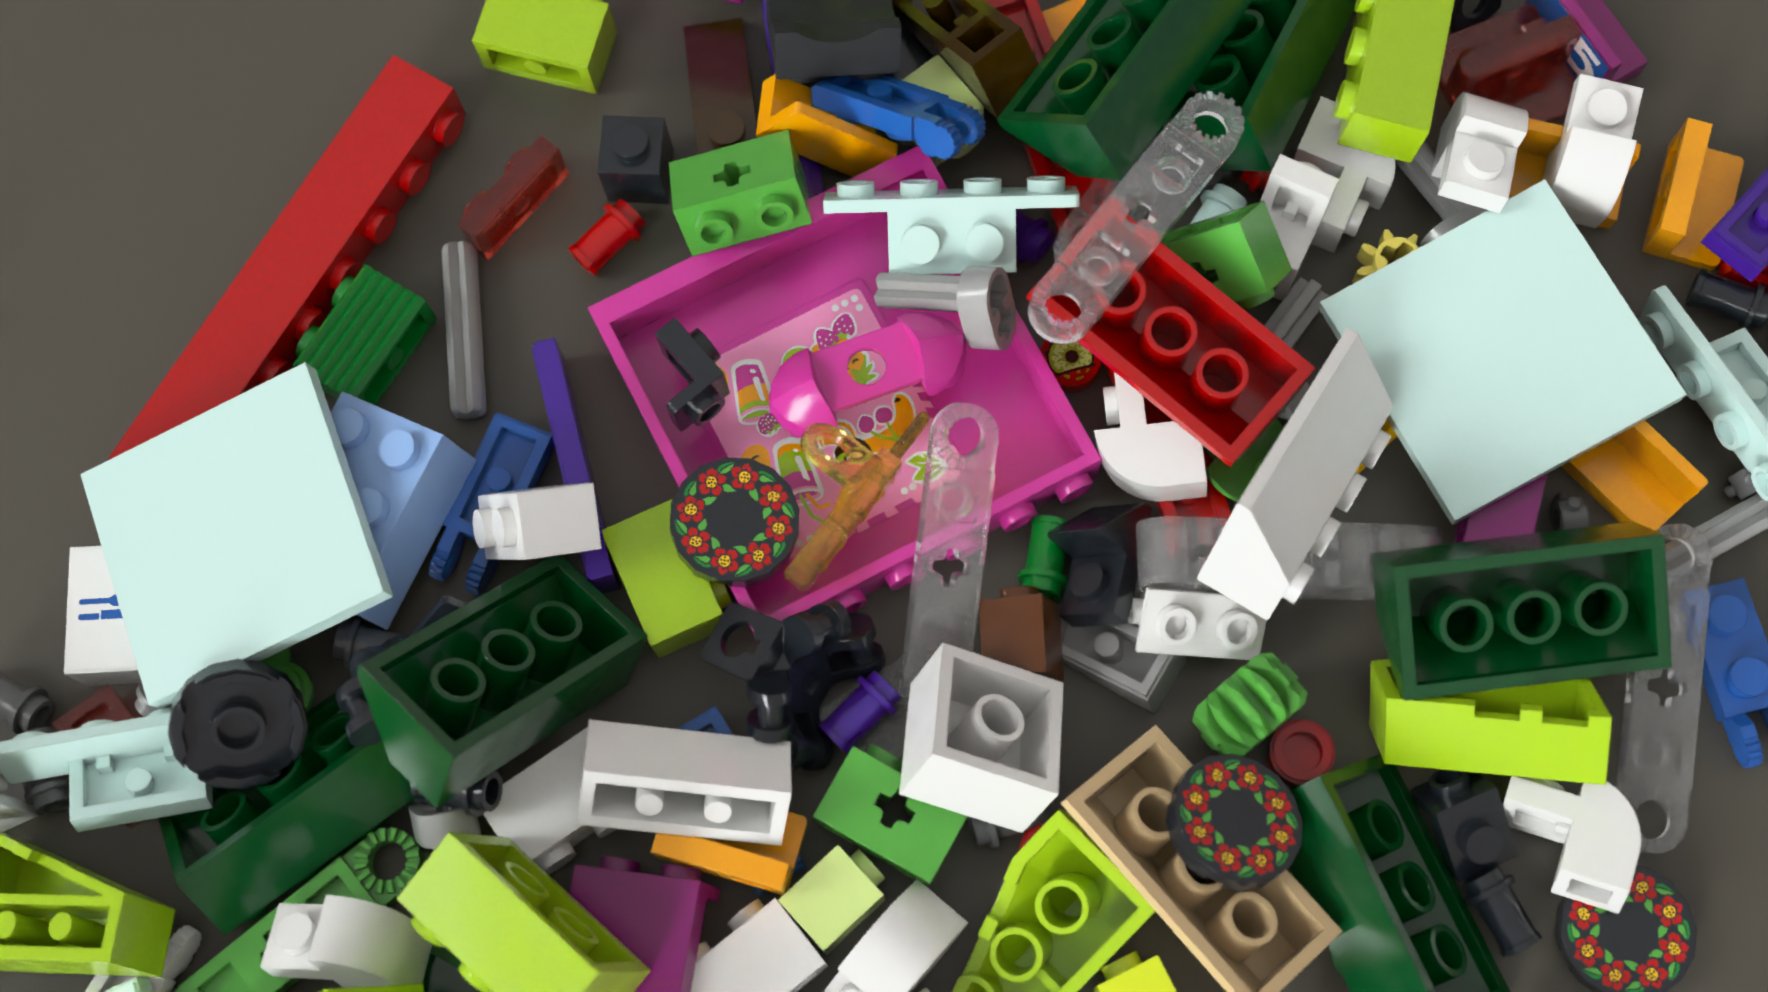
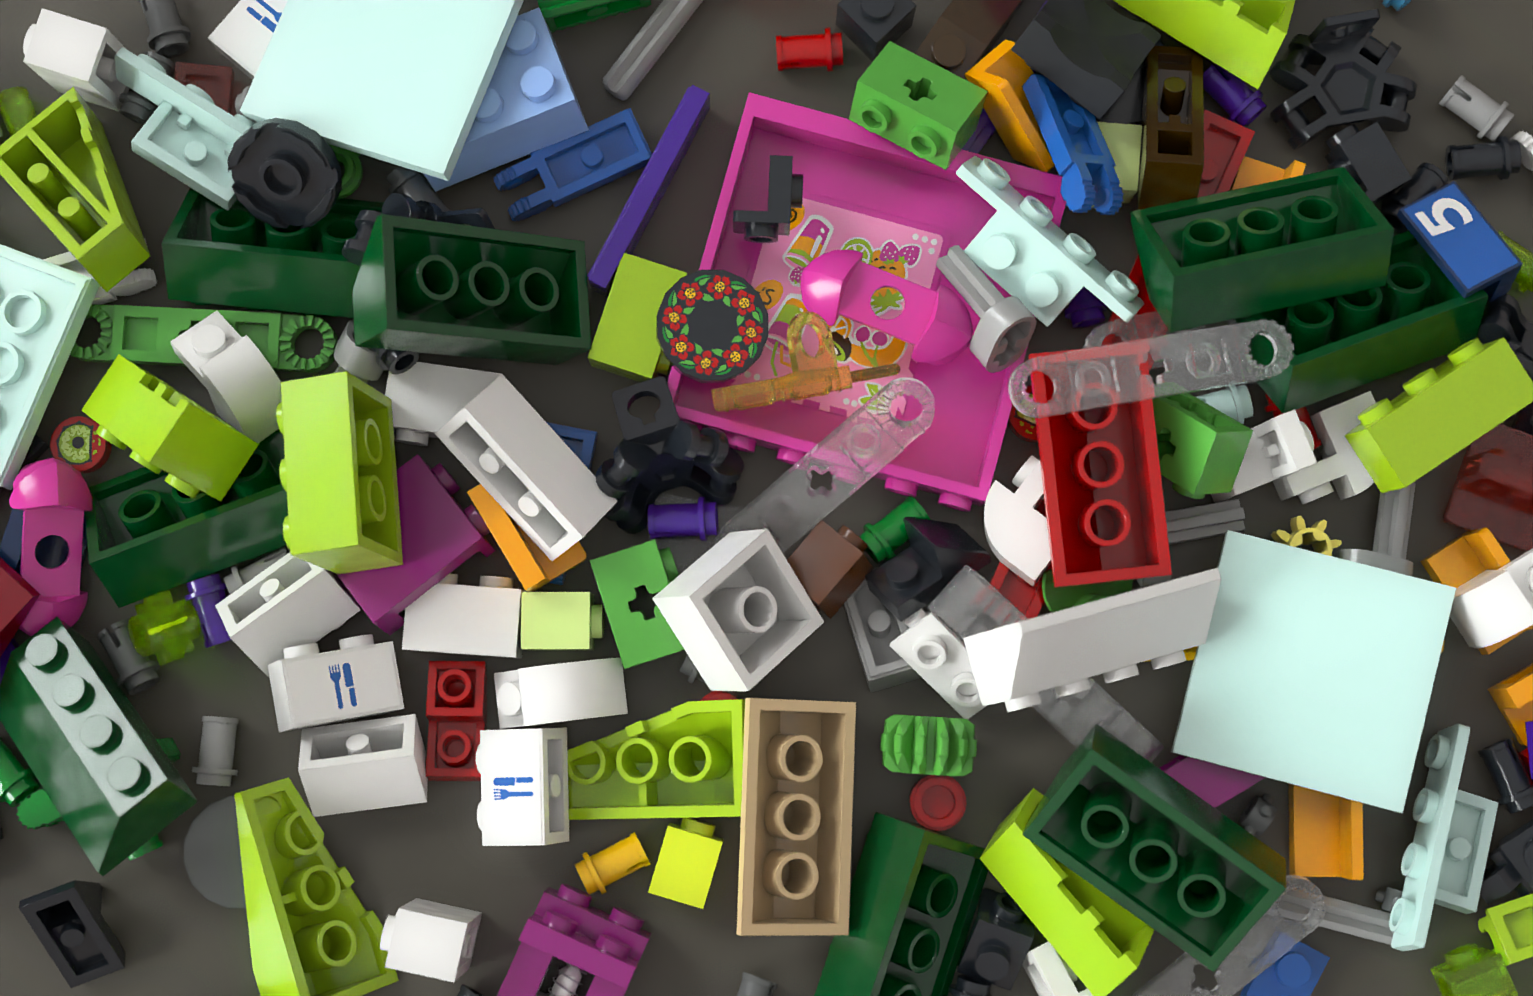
camera: 35 degrees right, 10 degrees up
(537, 522) = (585, 211): white brick -> none
(1234, 822) = (844, 808): tile -> none
(1479, 151) = (1432, 528): white brick -> none

